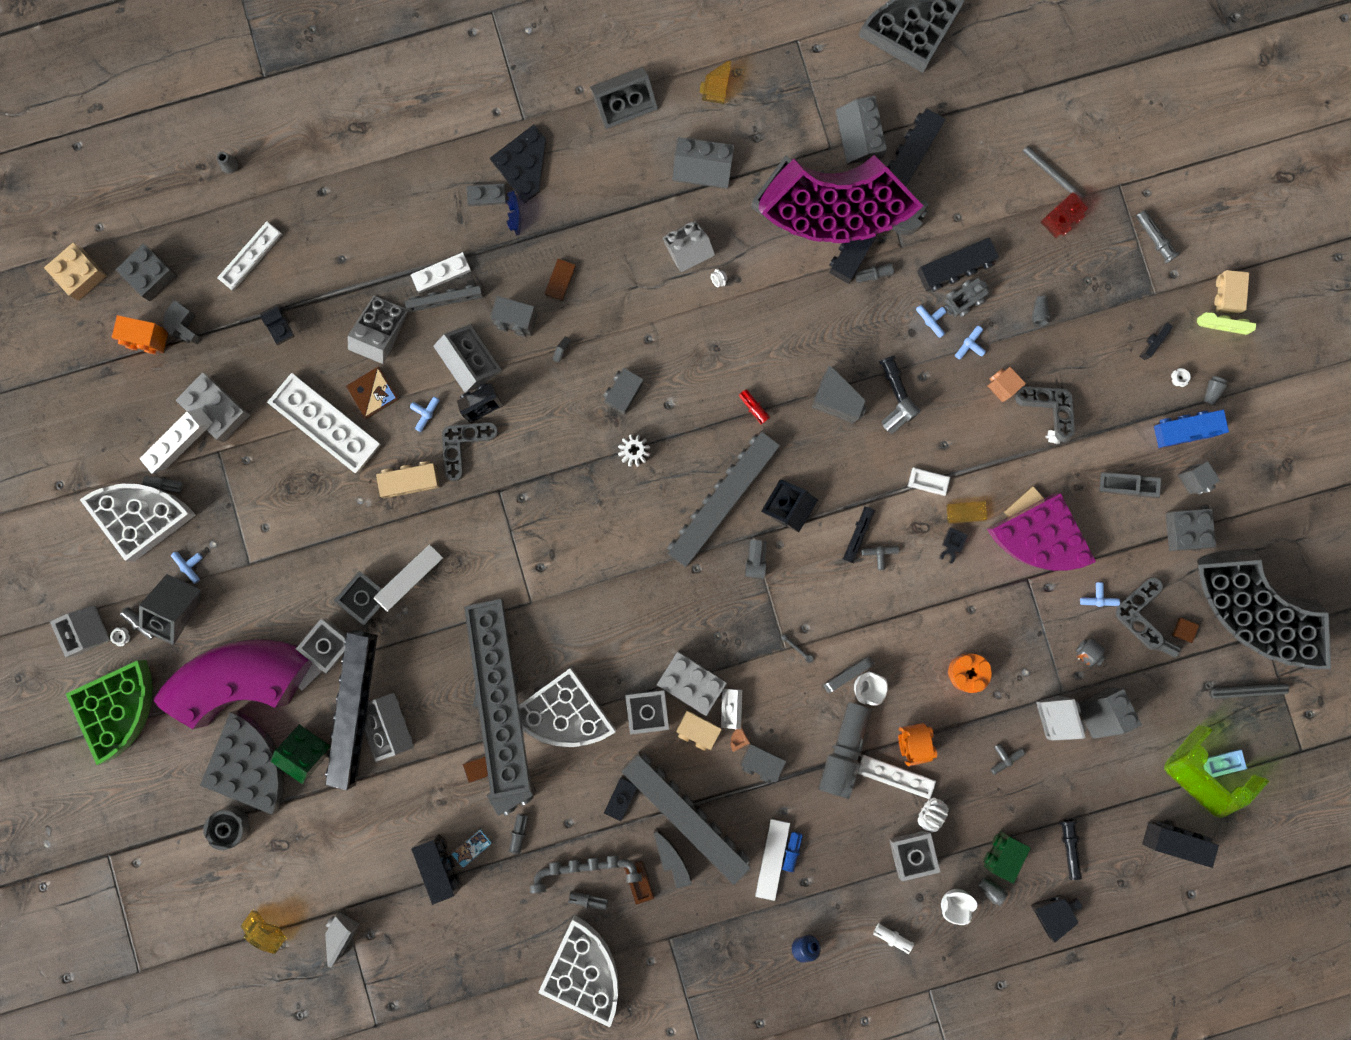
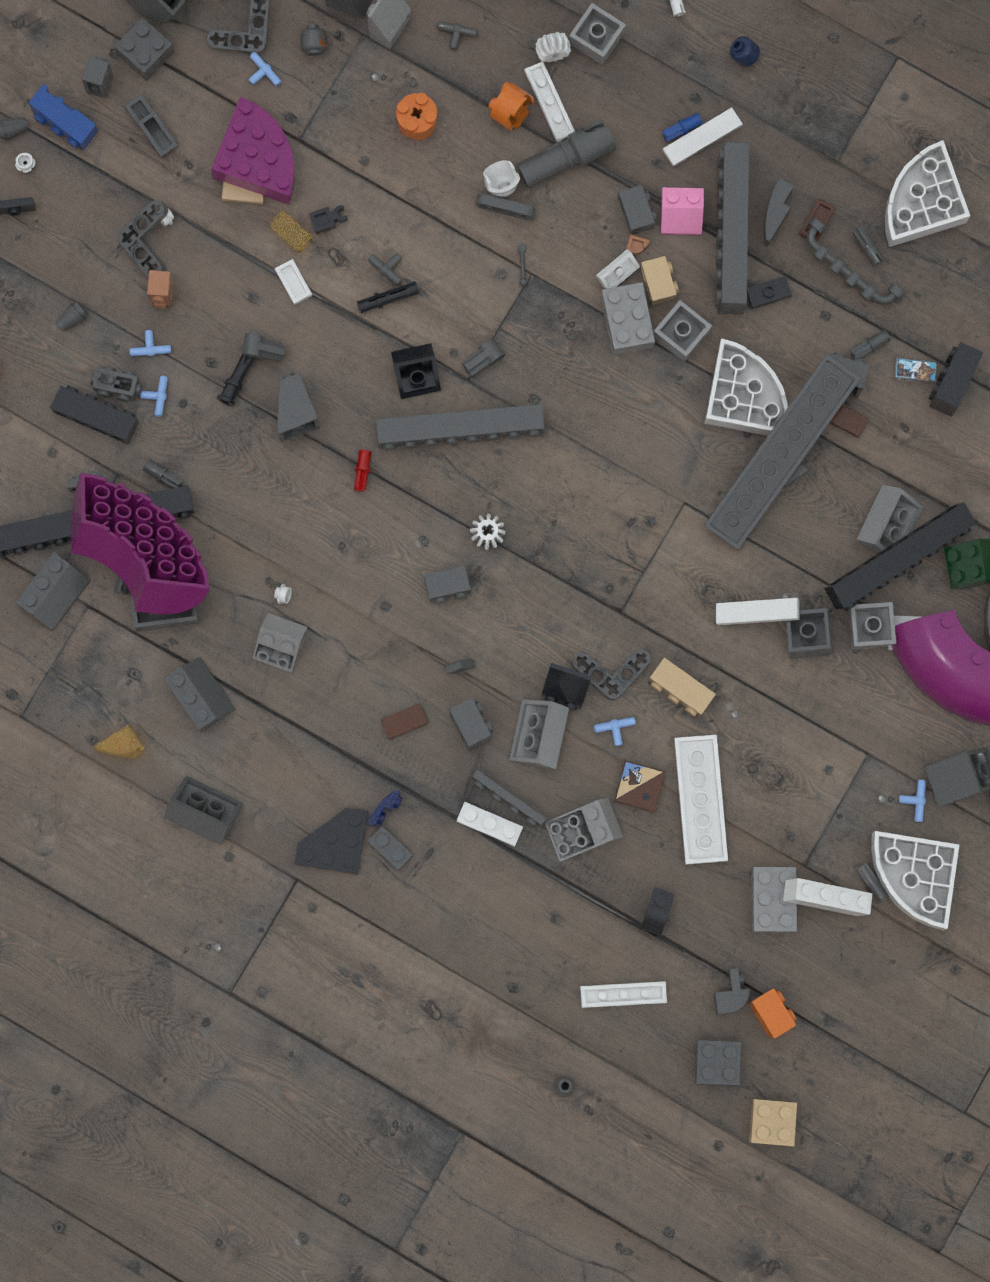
camera: 135 degrees left, 5 degrees down
(732, 793) = (682, 211): none -> bright pink slope

